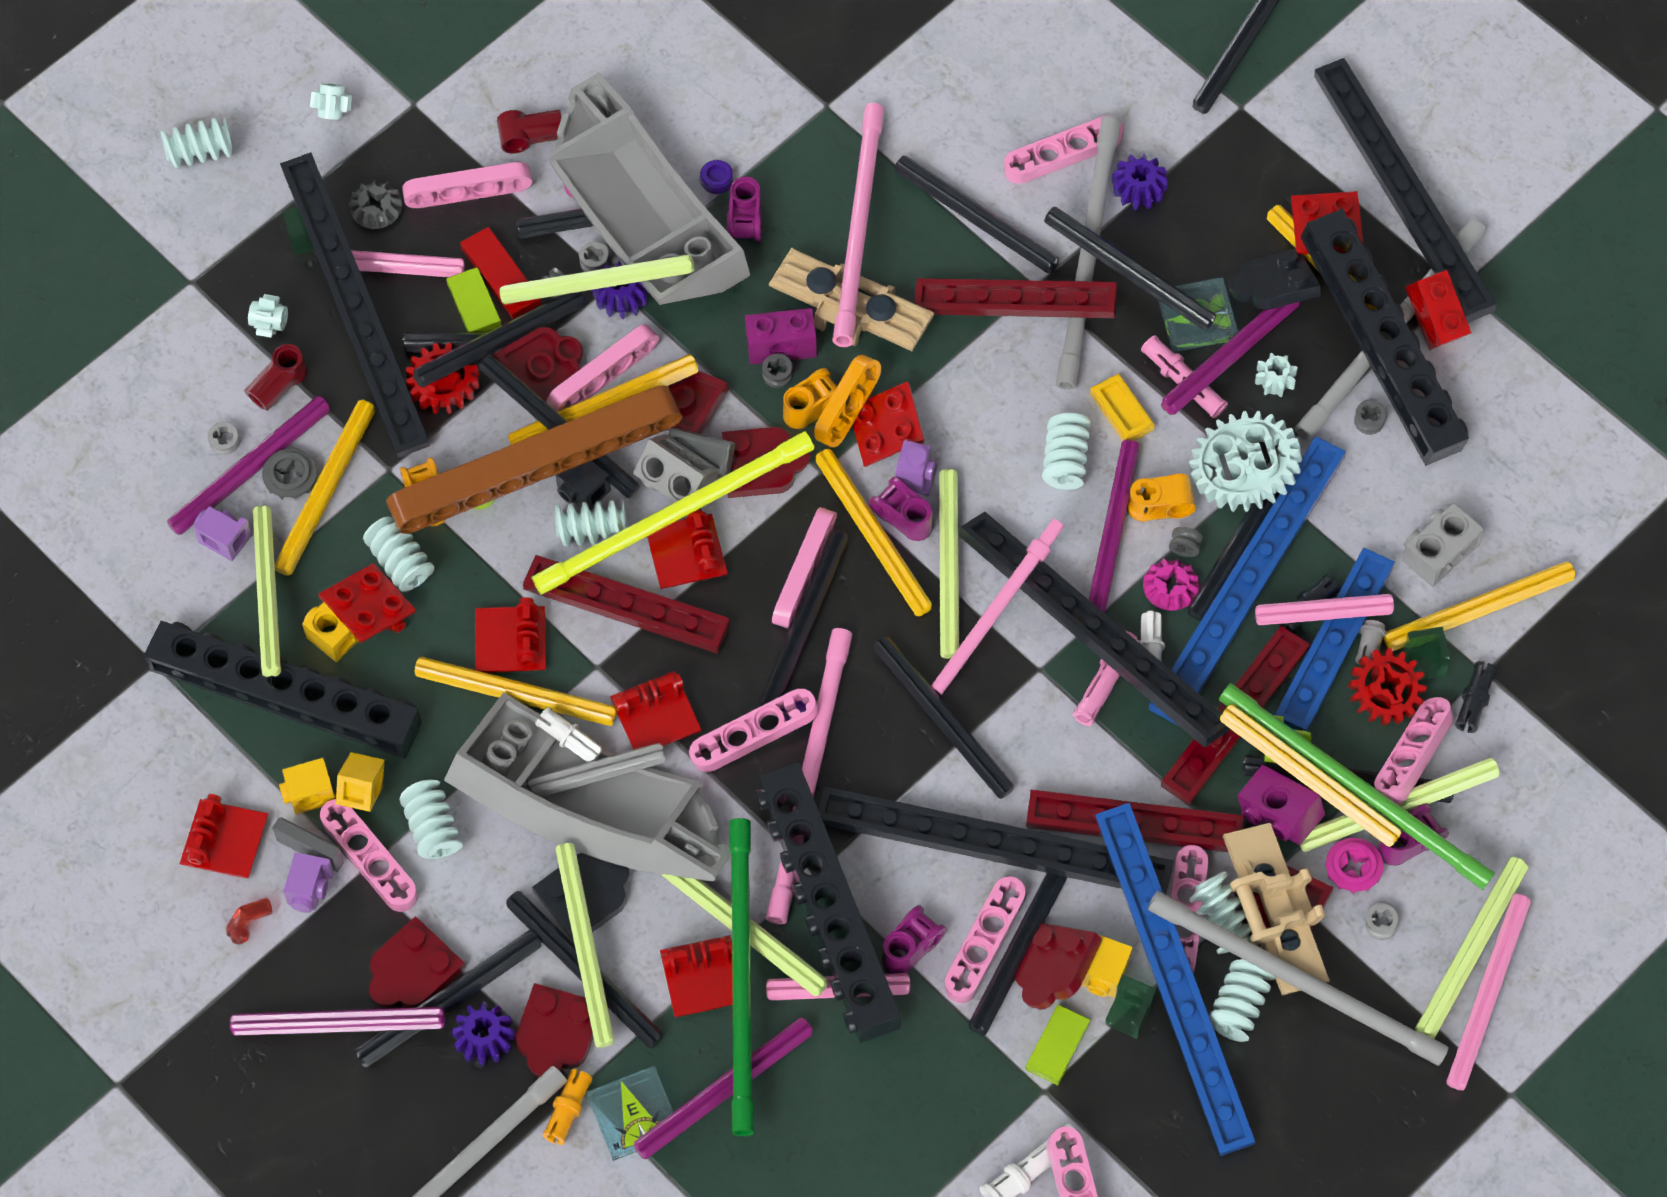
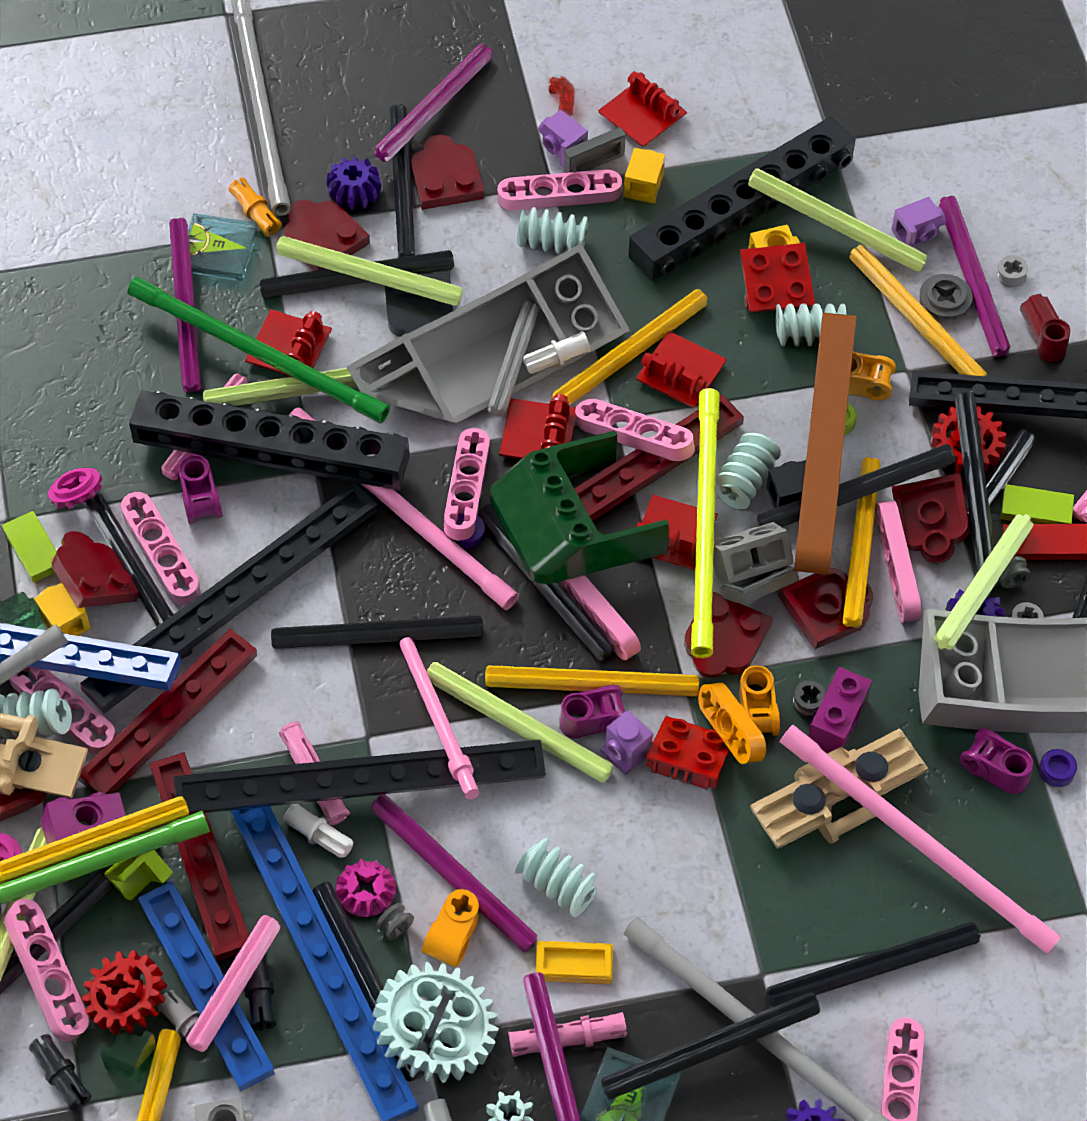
camera: 120 degrees right, 5 degrees down
(360, 781) = (621, 203): yellow brick -> none
(606, 627) = (670, 443): none -> bright pink beam
(753, 633) = (551, 522): none -> dark green windscreen
(977, 1059) = (75, 487): none -> dark pink gear
(1017, 298) = (745, 927): dark red plate -> none

